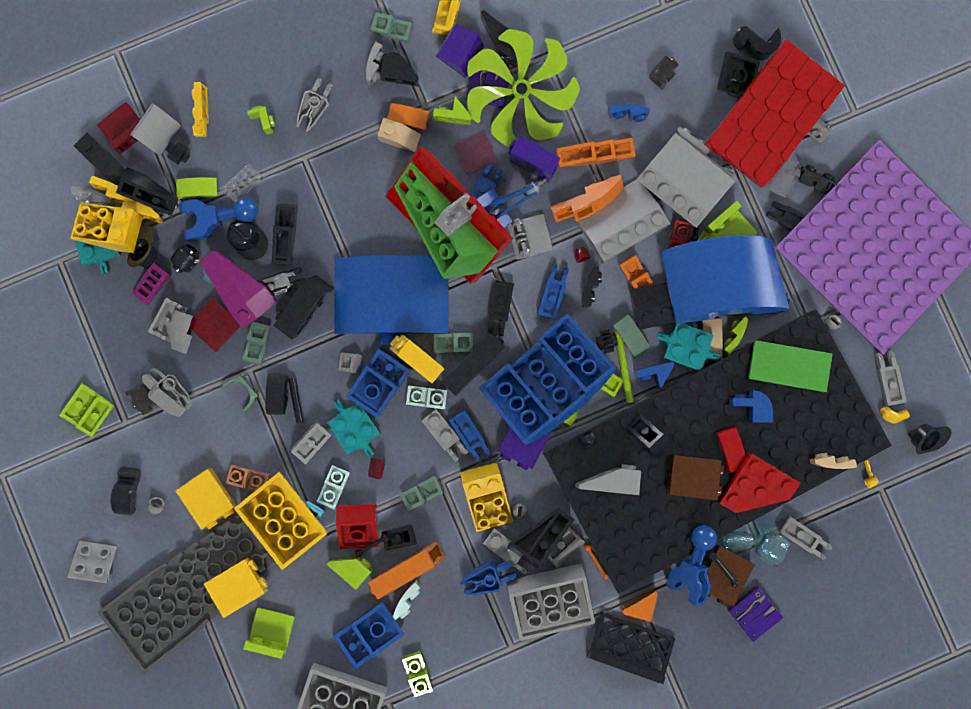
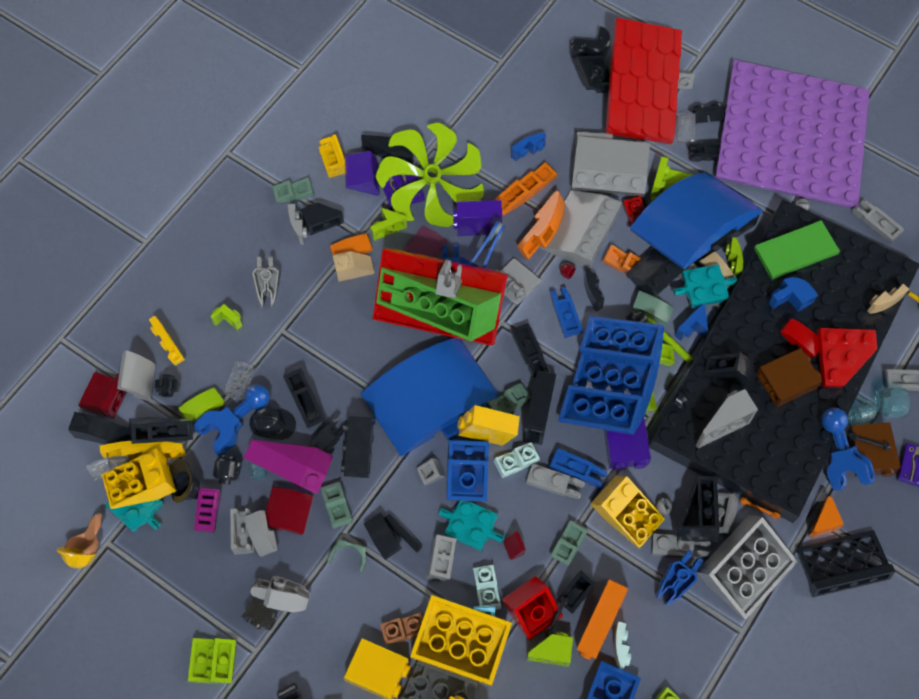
camera: 30 degrees left, 20 degrees down
(34, 254) = (81, 549): none -> piece
(663, 72) = (535, 104): clear smoke brick -> none
(893, 417) = (902, 247): yellow arm -> none

